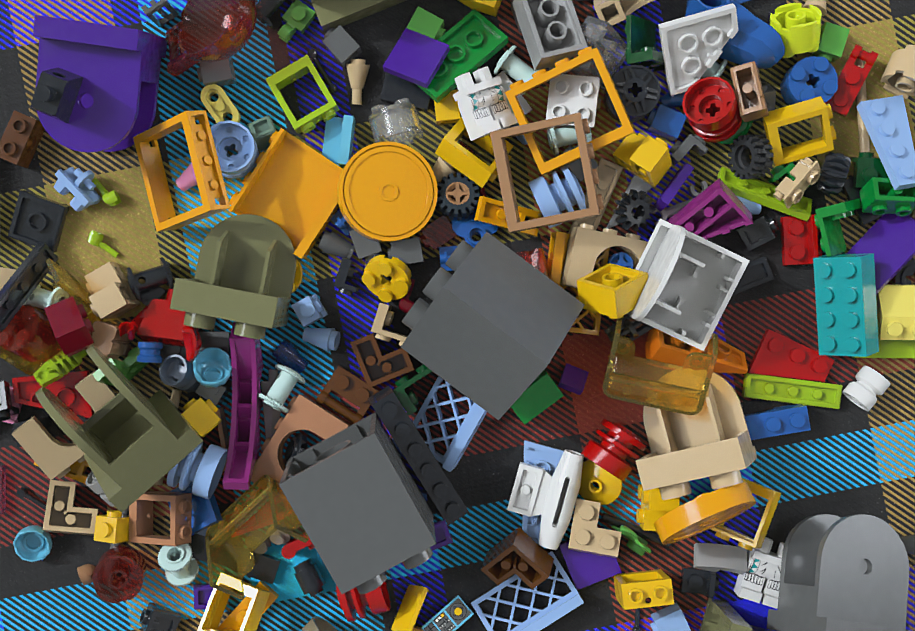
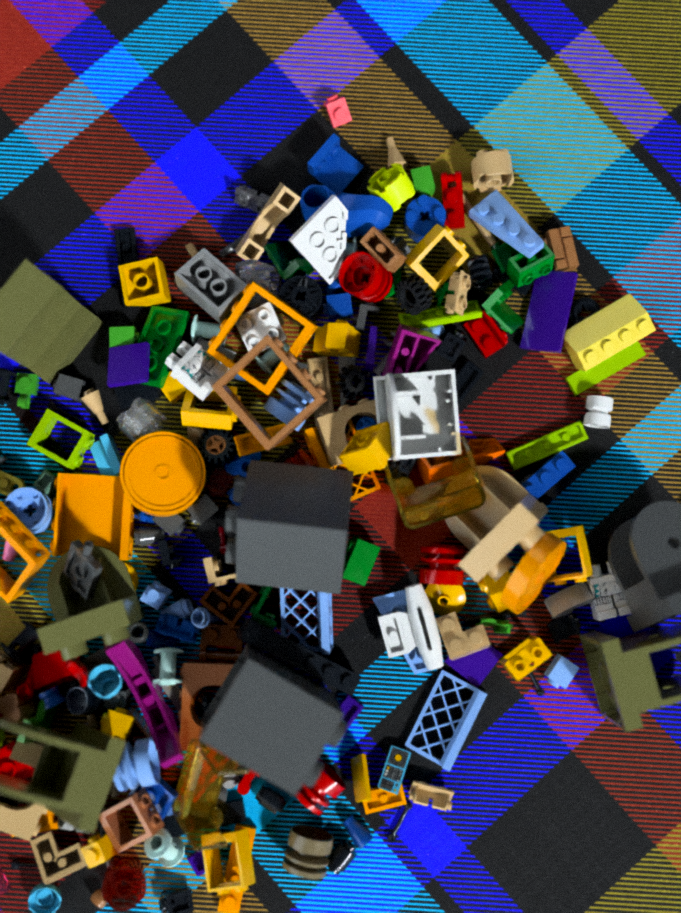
camera: 30 degrees left, 5 degrees down
(251, 242) = (82, 570): none -> dark grey plate
(275, 333) = (135, 629): none -> dark grey cone
(319, 364) = (168, 626): none -> blue hinge
(344, 360) = (203, 617): none -> light blue cone
(383, 288) = (193, 545): yellow plate -> none
(518, 555) = (419, 687): reddish brown brick -> none
(573, 379) = (381, 531): dark purple tile -> none
(789, 359) = (530, 423): red wing -> none
(846, 305) = (546, 360): teal brick -> none

